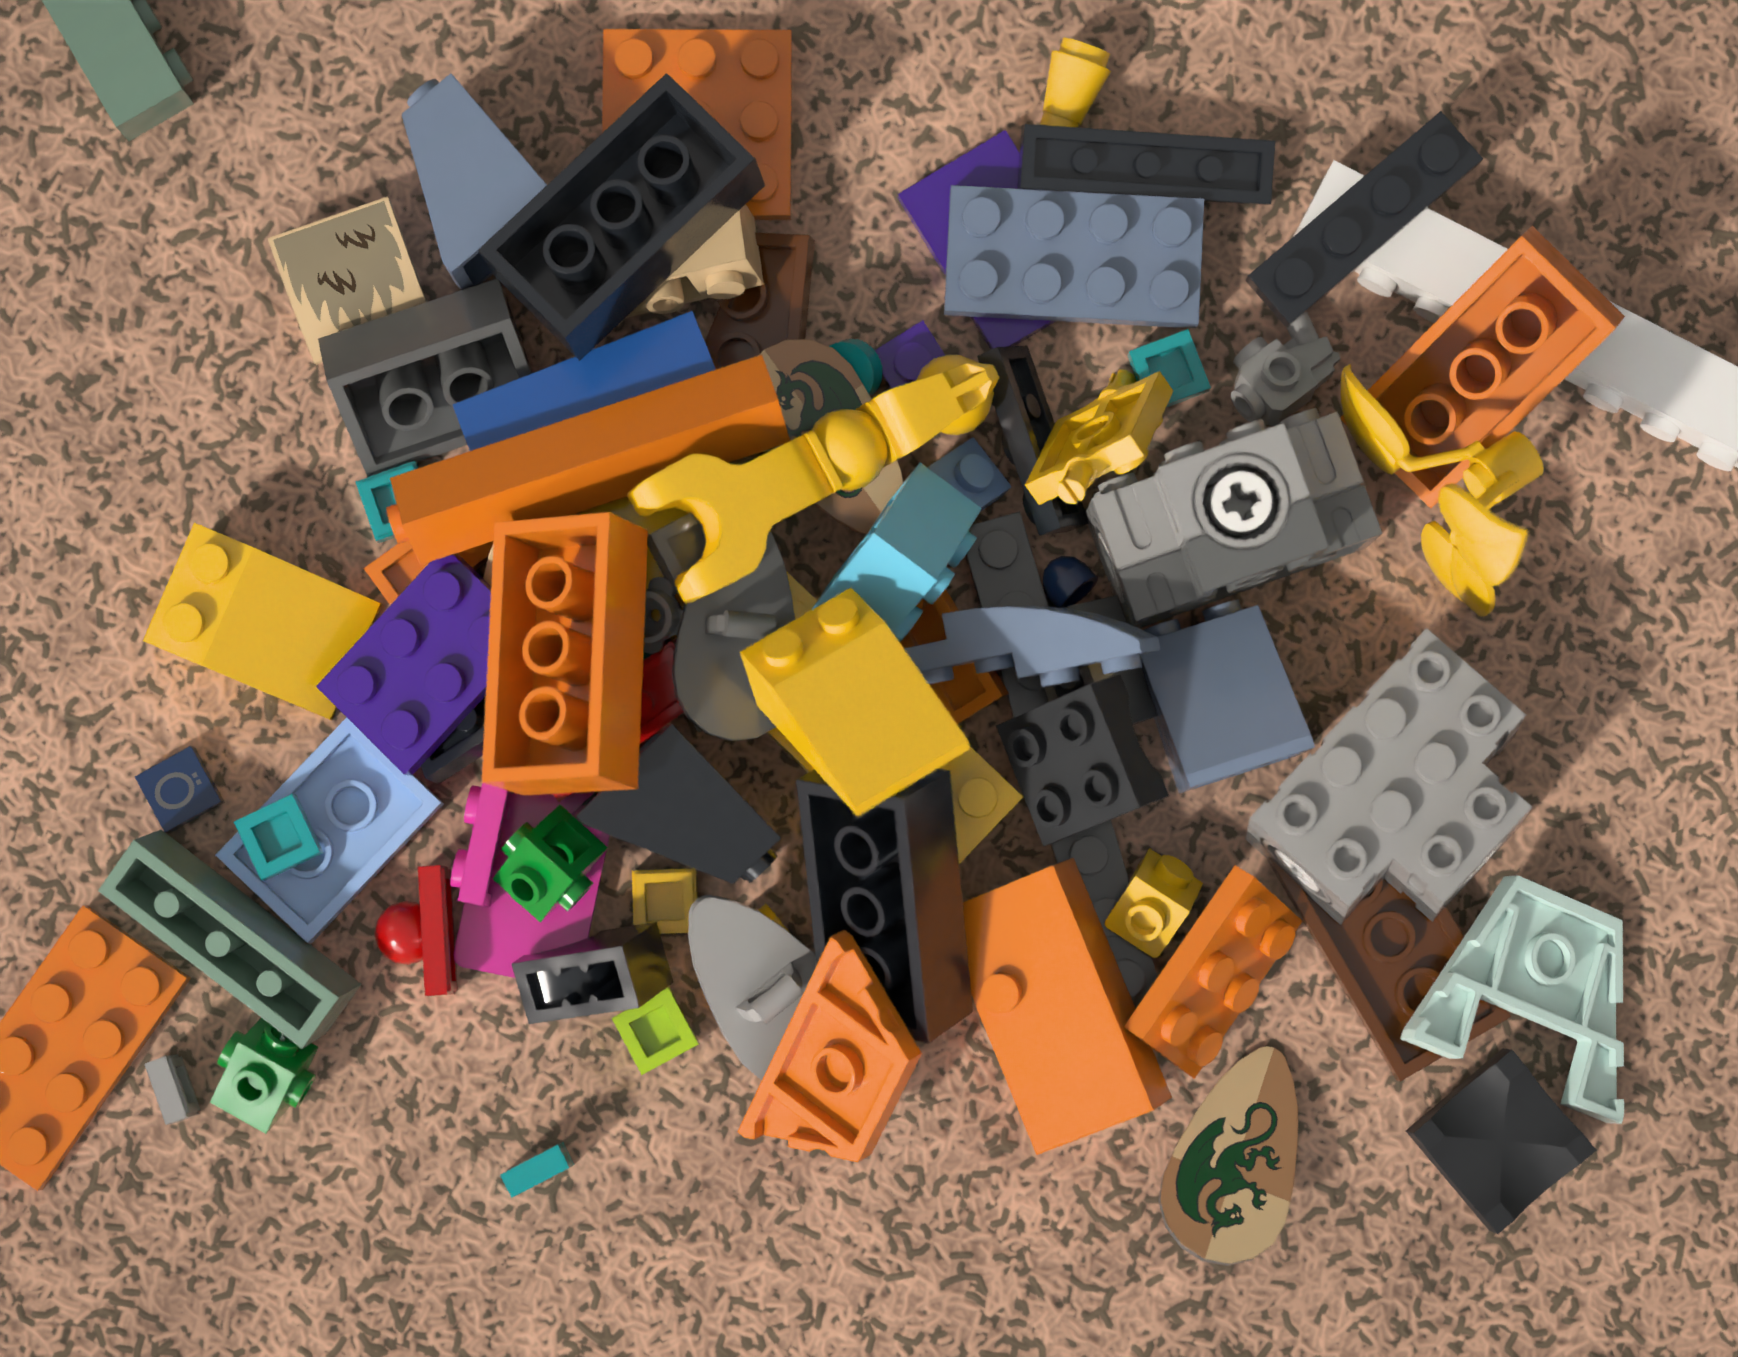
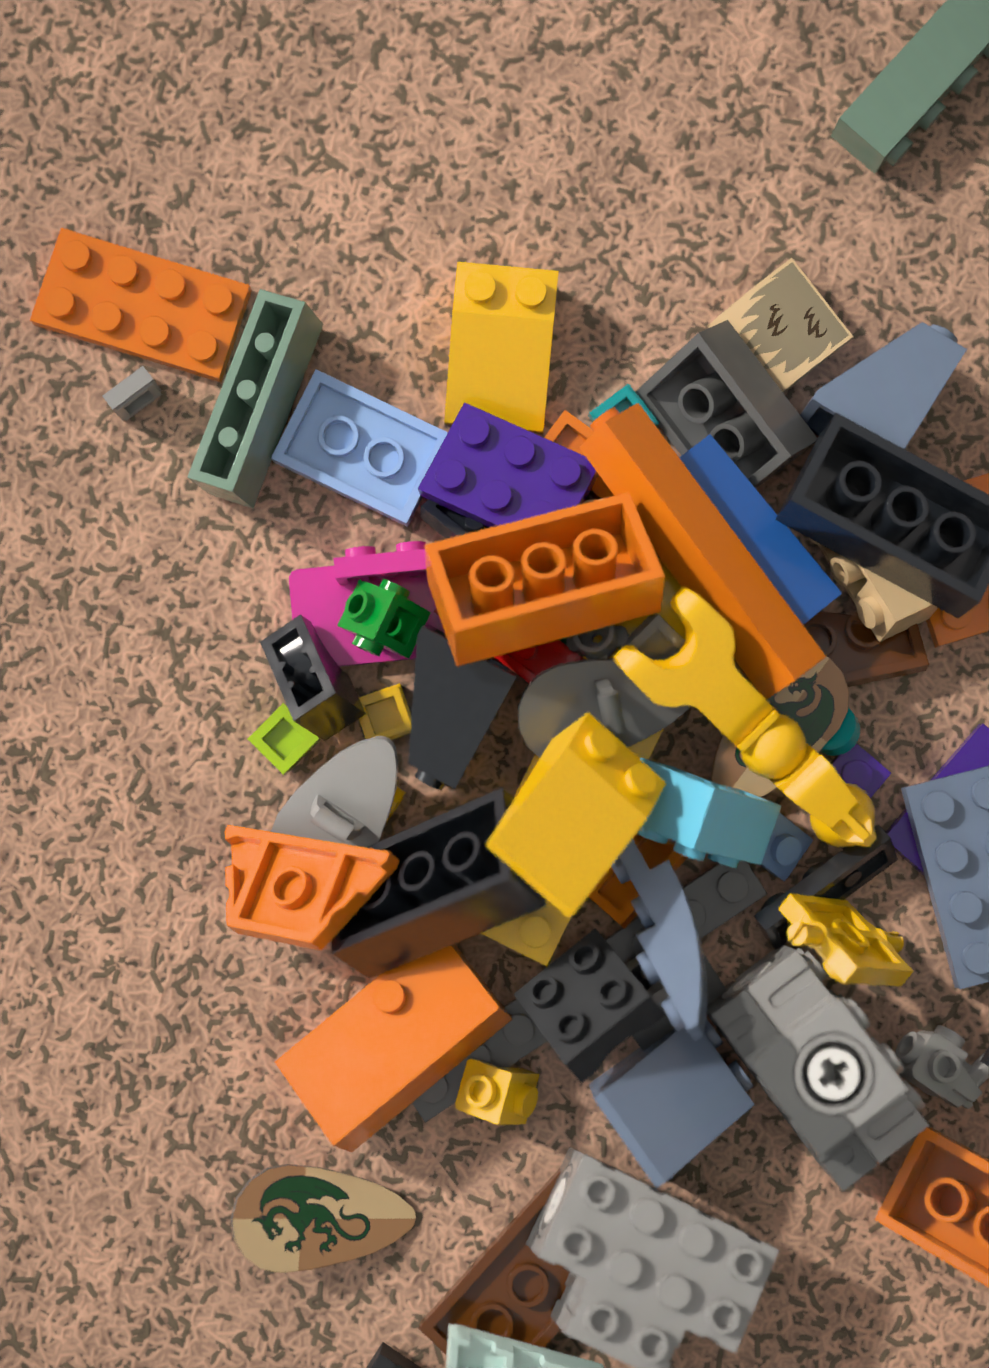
camera: 75 degrees right, 0 degrees up
(179, 789) = (357, 328): dark blue tile -> none
(263, 1075) = (169, 460): green brick -> none
(278, 837) = (341, 410): teal plate -> none
(423, 931) = (305, 542): red tile -> none
(537, 1169) = (153, 683): teal tile -> none
(1067, 581) = (725, 947): dark blue hinge -> none
(1178, 363) = (924, 982): teal plate -> none
(1214, 973) = (457, 1158): orange plate -> none
(1480, 545) = (867, 1283): yellow plant -> none

